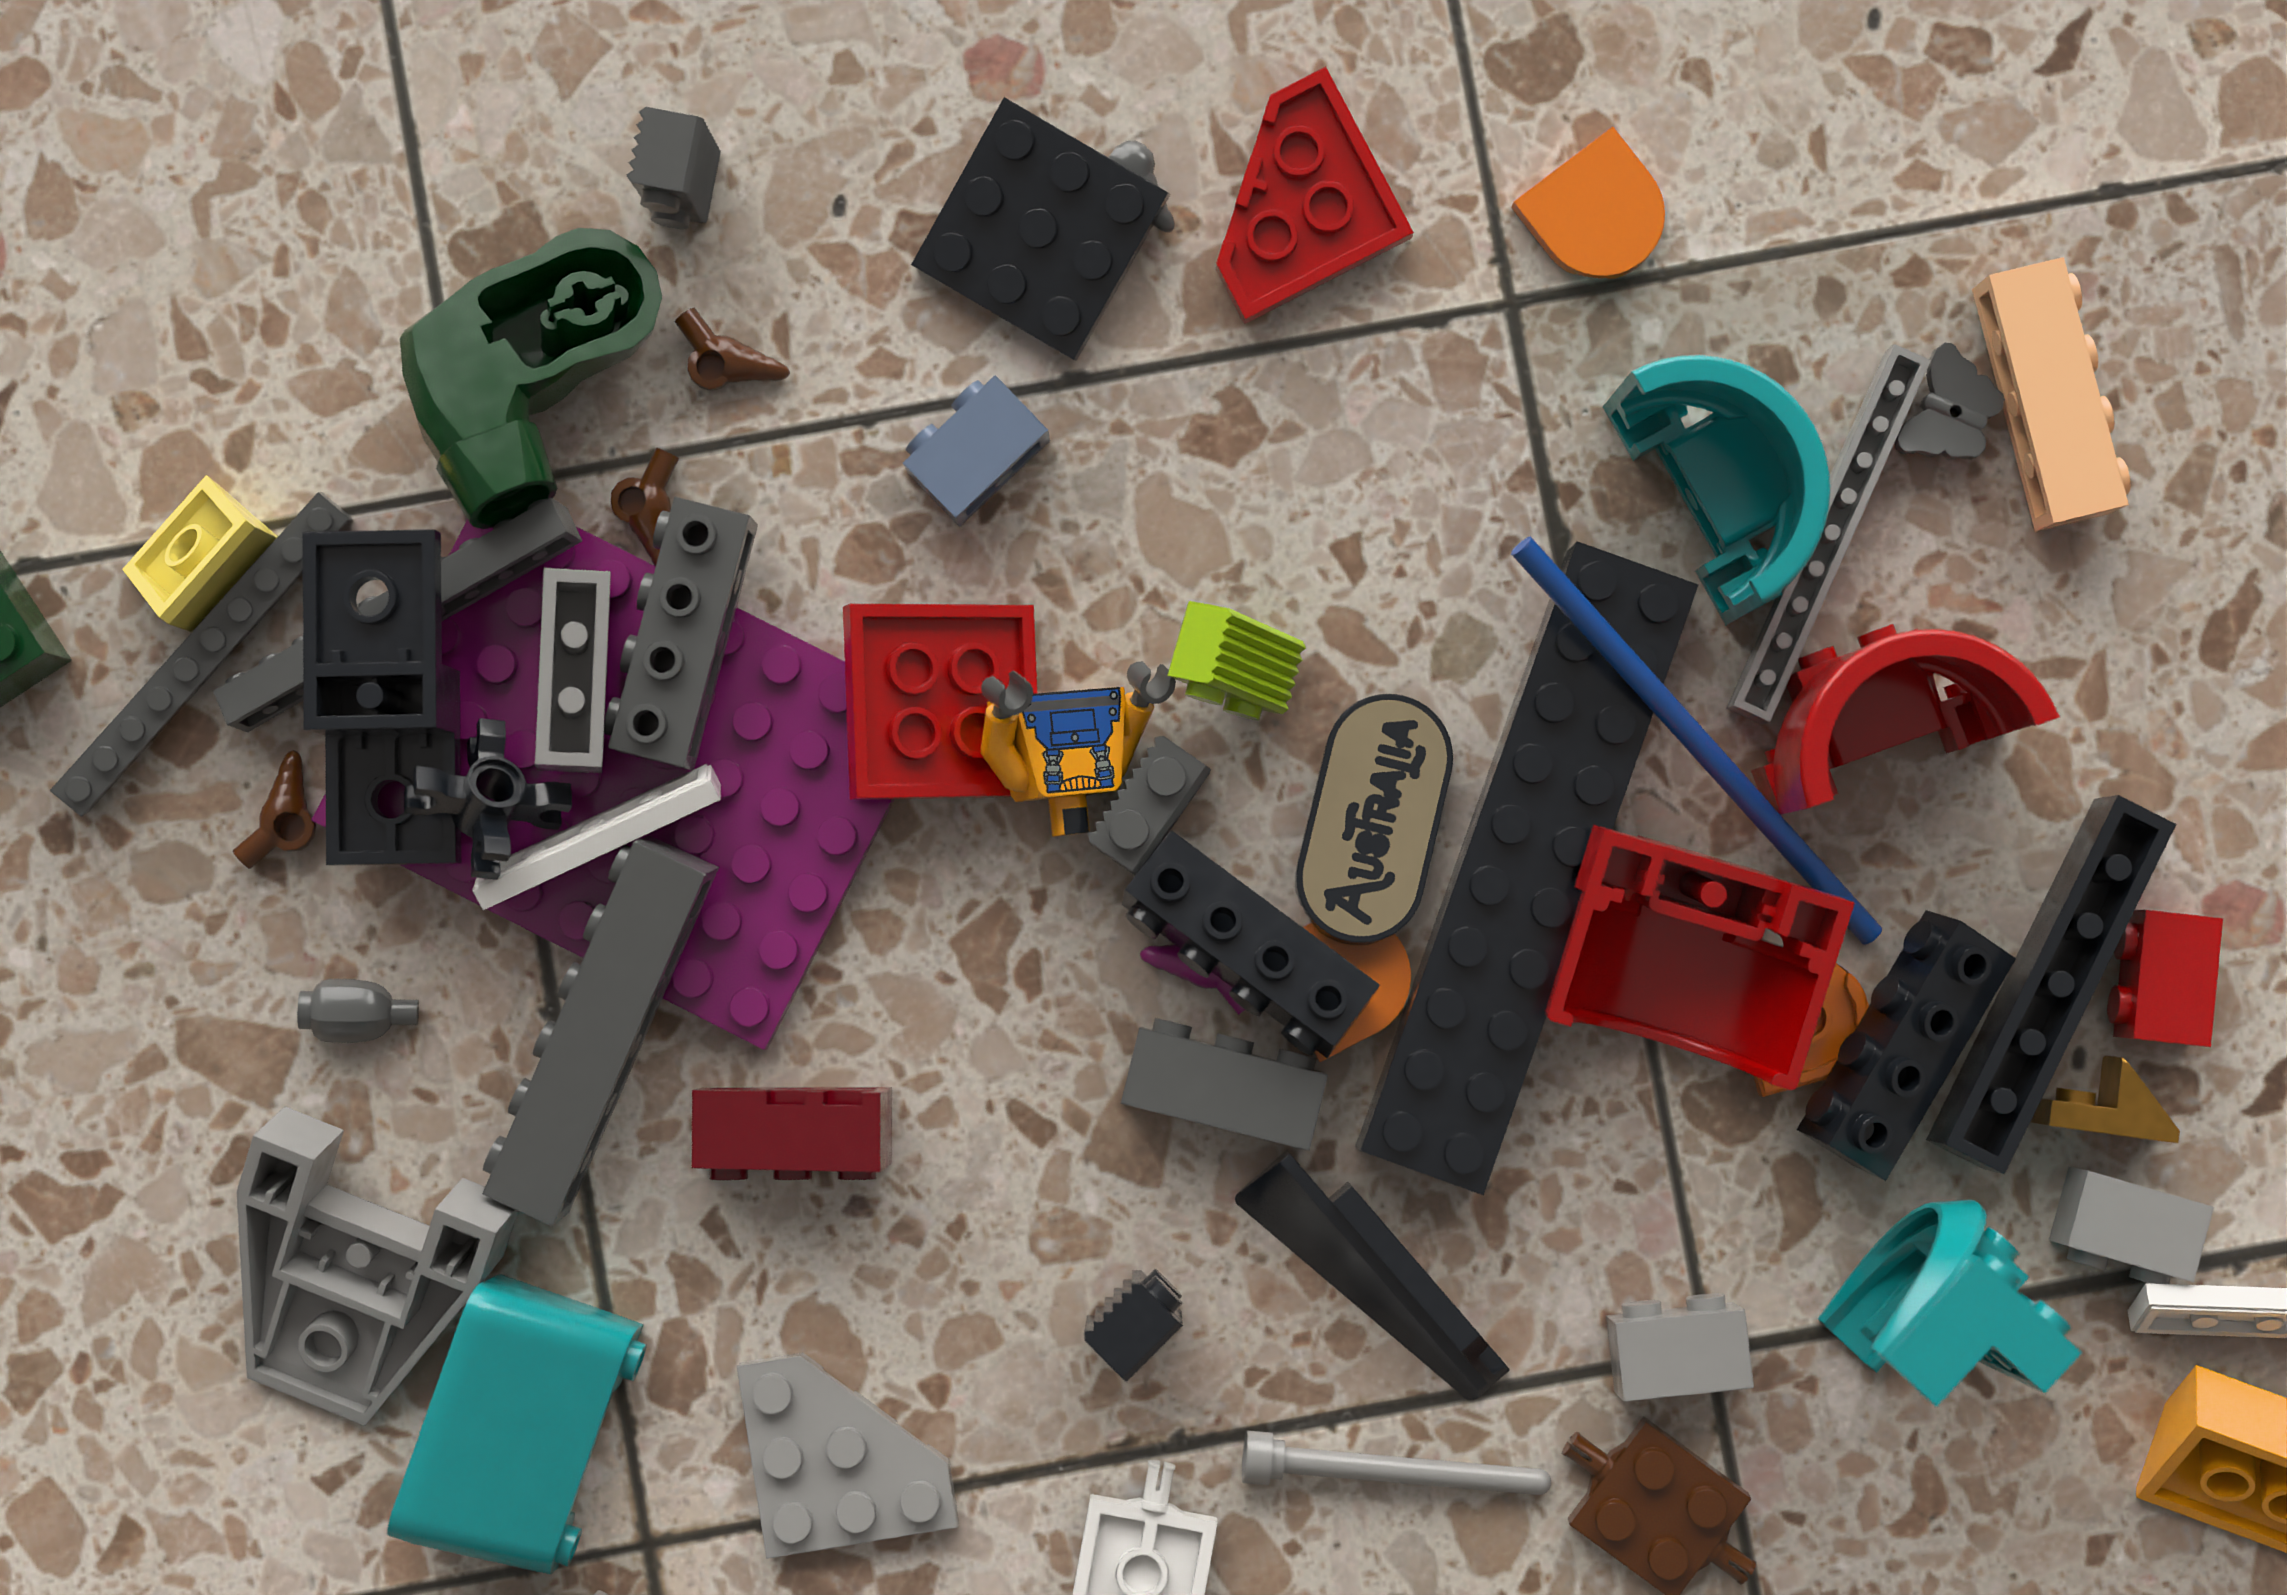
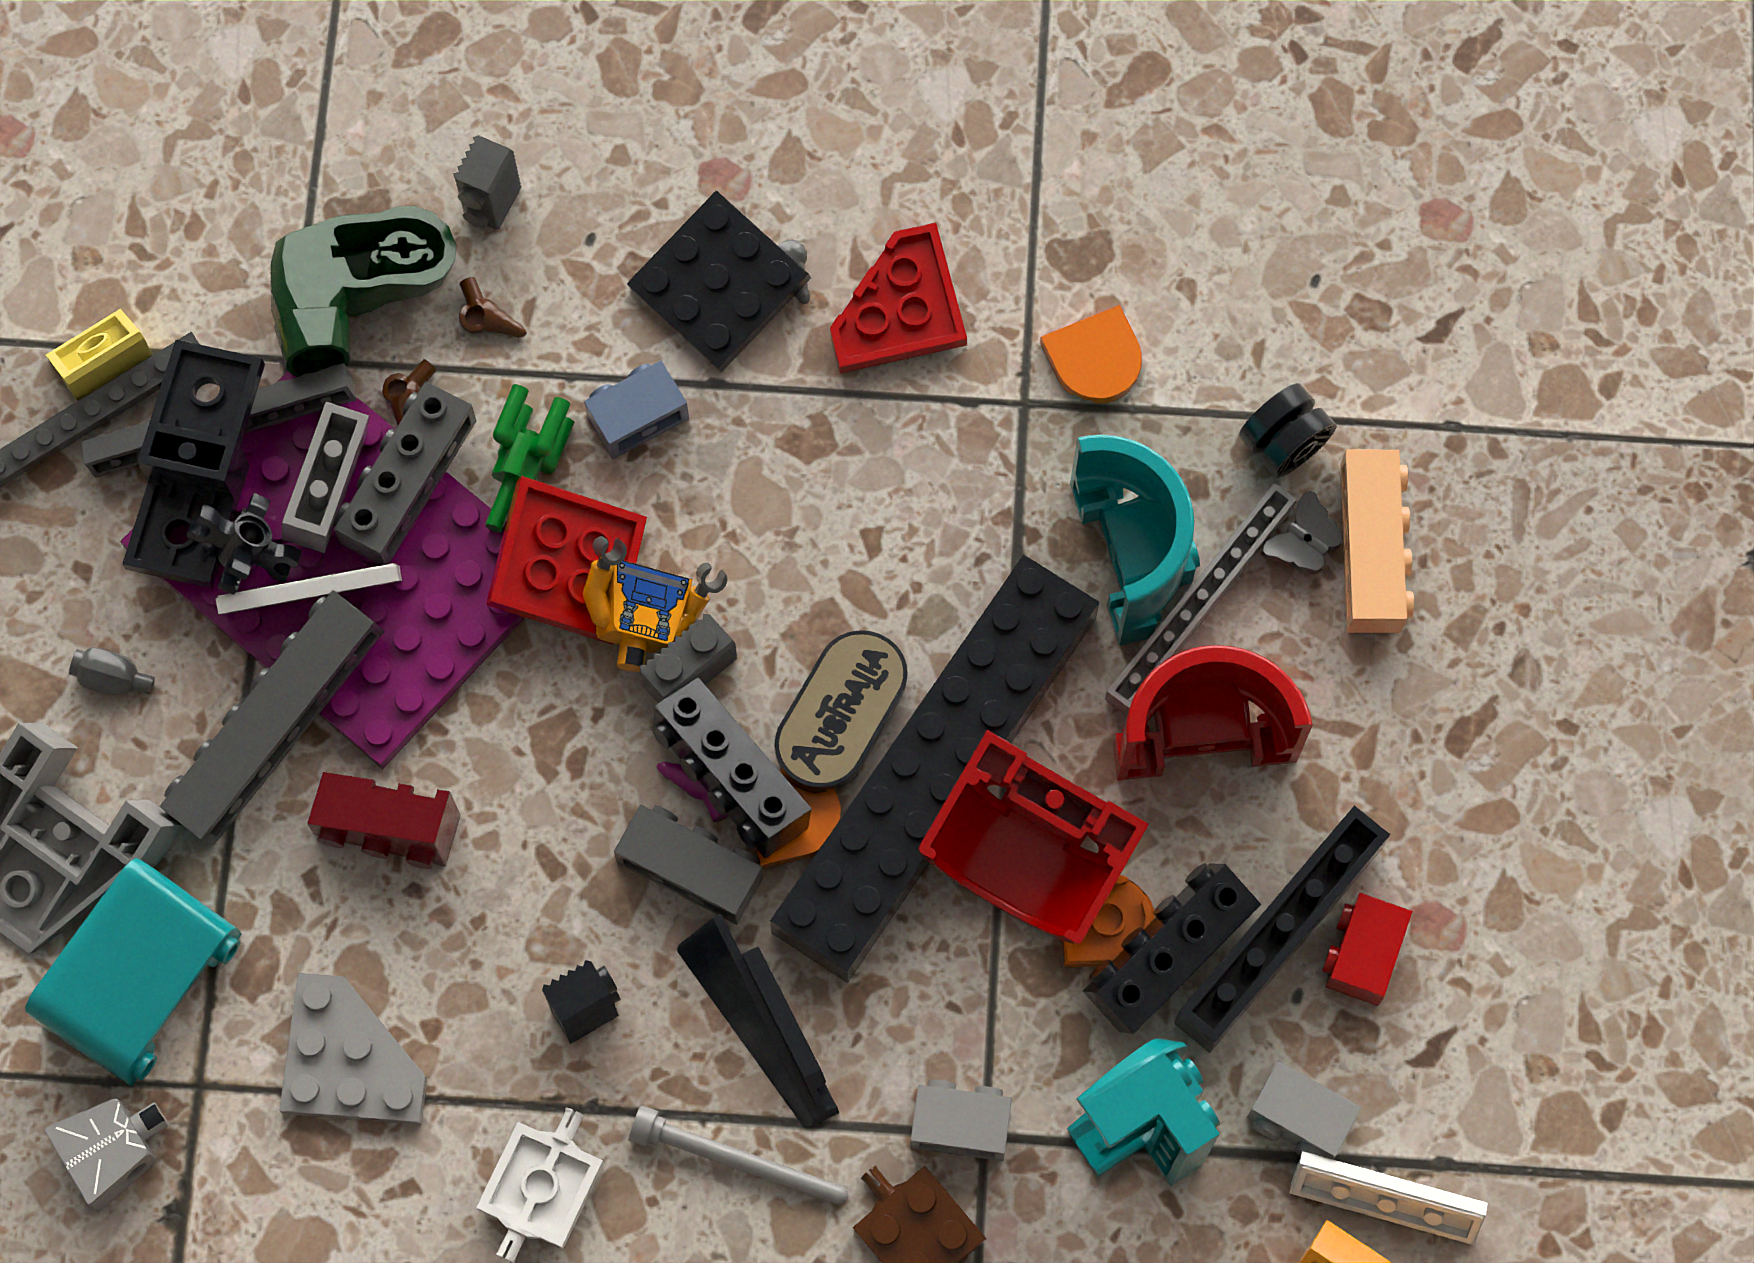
camera: 10 degrees right, 15 degrees down
(283, 818) = (101, 537): reddish brown animal -> none
(837, 554) = (524, 450): none -> green plant
(1235, 660) = (772, 578): lime brick -> none
(1689, 732) = (1070, 699): blue piece -> none
(1898, 263) = (1287, 430): none -> black wheel
(2122, 1107) = (1316, 1037): pearl gold slope -> none

